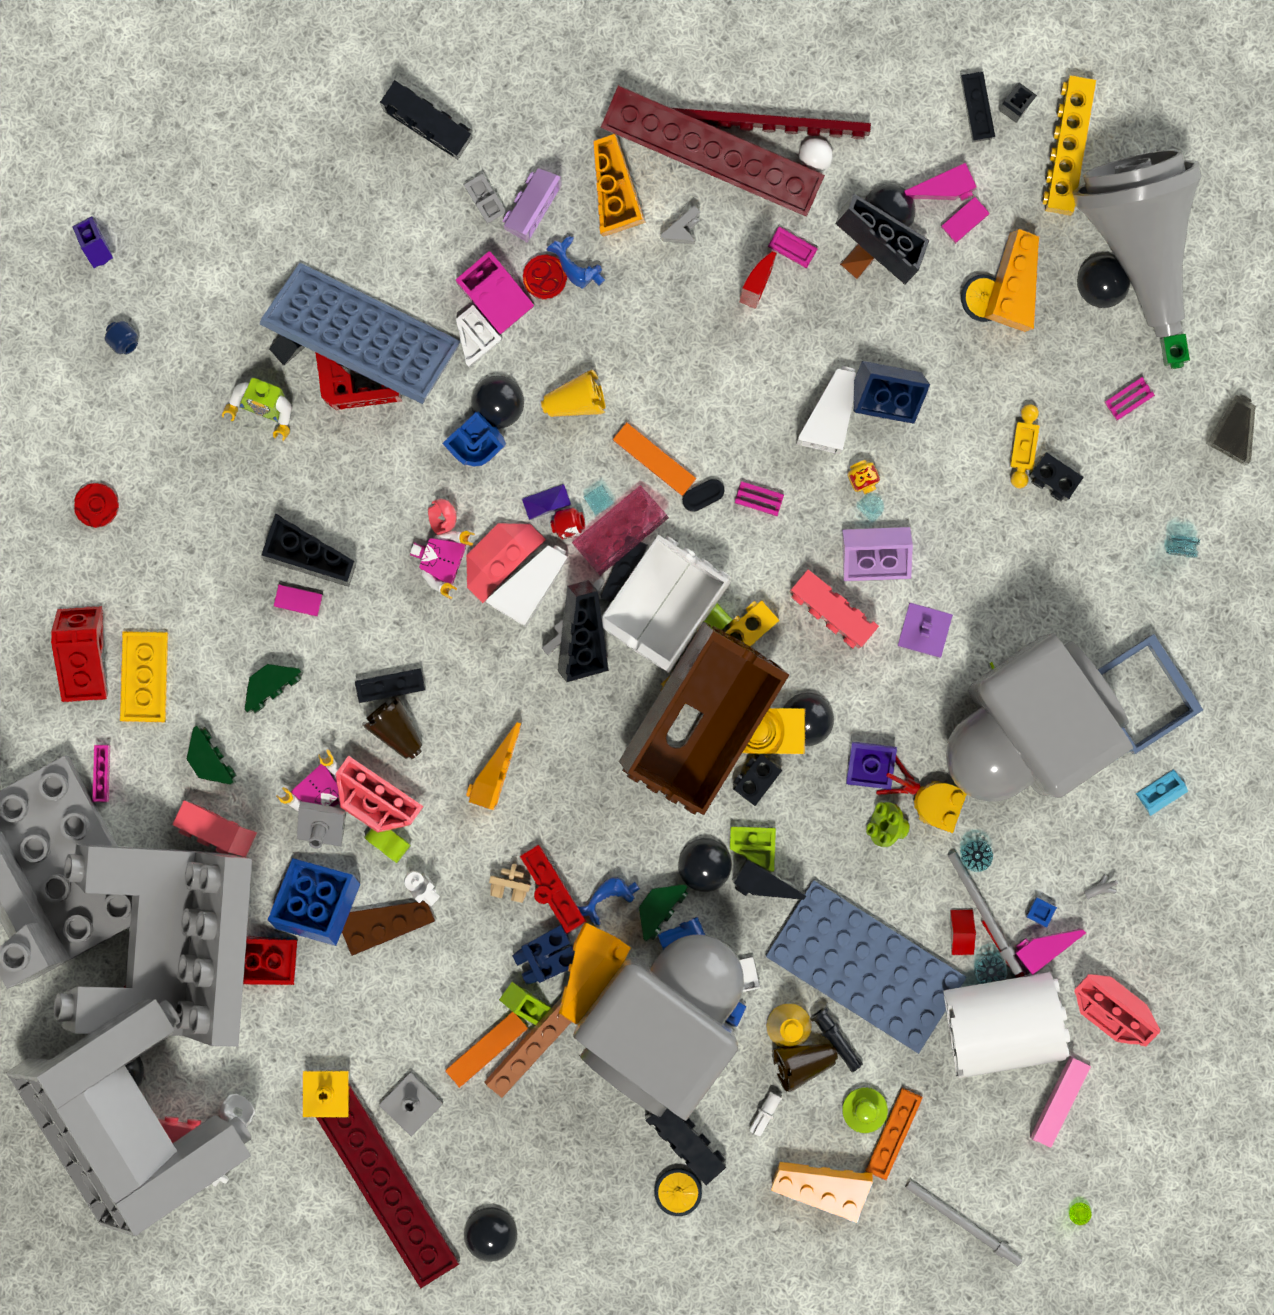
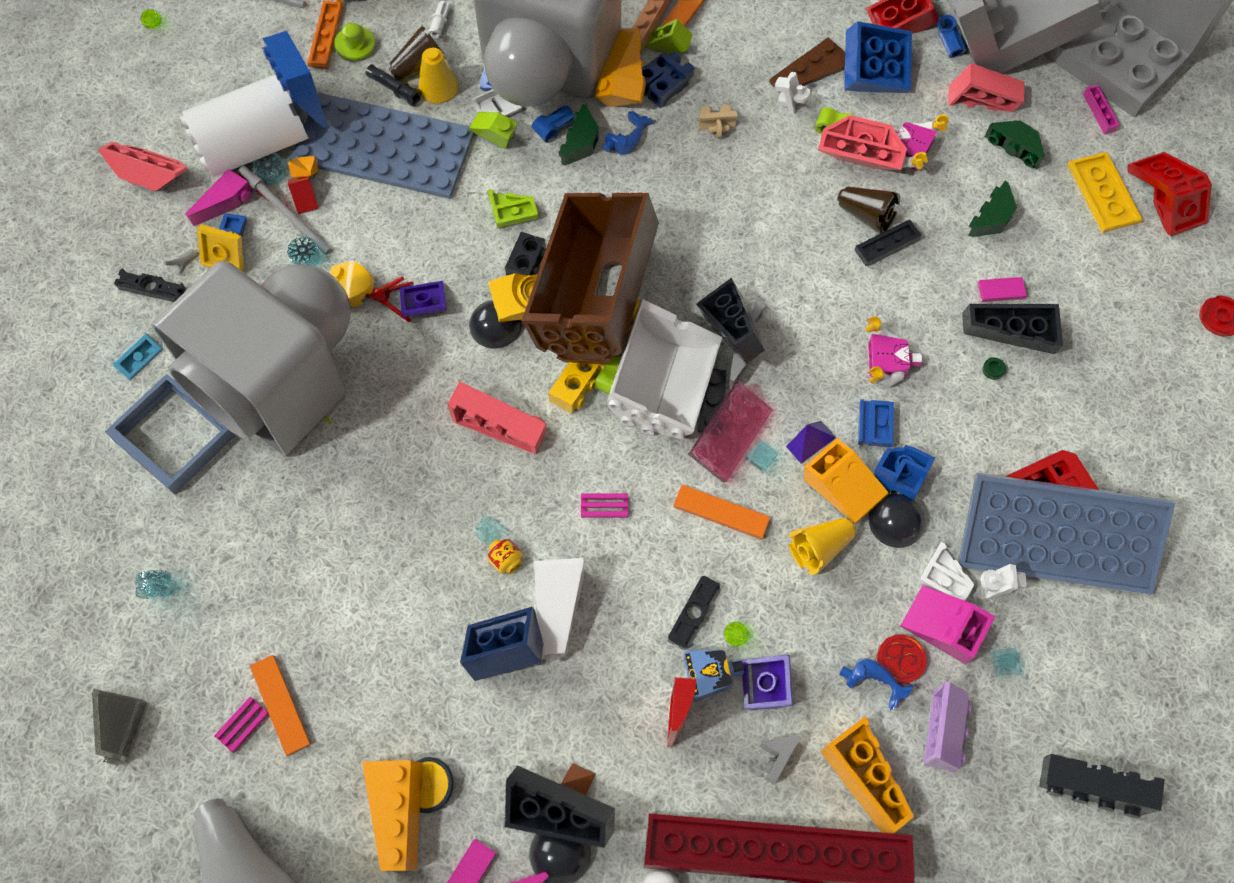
camera: 160 degrees right, 20 degrees down
(262, 400) = (1121, 445): torso -> none
(320, 824) = (900, 114): light grey tile -> none
(343, 520) = (994, 368): none -> dark green tile
(432, 311) = (1002, 581): none -> white hips
(446, 508) = (903, 395): coral hair -> none
(455, 246) = (1006, 662): none -> clear light blue plate
(479, 499) = (876, 423): none -> blue plate
(484, 198) = (996, 722): light grey slope -> none
(490, 781) = (766, 189): light orange wedge -> none
(500, 556) = (834, 379): coral wedge -> none
(528, 587) = (801, 347): white slope -> none
(533, 446) = (844, 481): none -> light orange slope
(551, 889) = (679, 126): red hinge -> none
(568, 523) = (783, 424): red head -> none
(667, 290) = (770, 683): none -> dark purple slope
(681, 343) = (736, 634): none -> clear neon green plate
(701, 385) = (700, 598): none -> black piece
(703, 495) = (660, 492): black tile -> none
(705, 865) = (550, 182): black piece -> none
(716, 315) = (710, 671): none -> torso
(747, 944) = (494, 128): none -> lime slope
(759, 882) = (487, 171): black slope -> none
(792, 247) = (653, 775): dark pink tile -> none
(877, 554) = (470, 487): lavender slope -> none
(887, 825) = (393, 251): lime plate -> none
(925, 630) = (403, 434): medium lavender piece -> none
(943, 1050) = (293, 74): none -> blue slope
(955, 958) = (303, 166): none -> light orange slope
(1024, 446) = (344, 638): yellow plate -> none
(1056, 879) = (218, 246): none -> yellow tile
(1058, 472) = (302, 618): black brick -> none
(1060, 1102) = (185, 89): bright pink panel -> none
(1093, 405) = (280, 705): none -> orange tile
(1103, 281) = (298, 847): black piece -> none
(1150, 875) = (136, 284): none -> black piece
(1180, 342) = (189, 785): green brick -> none

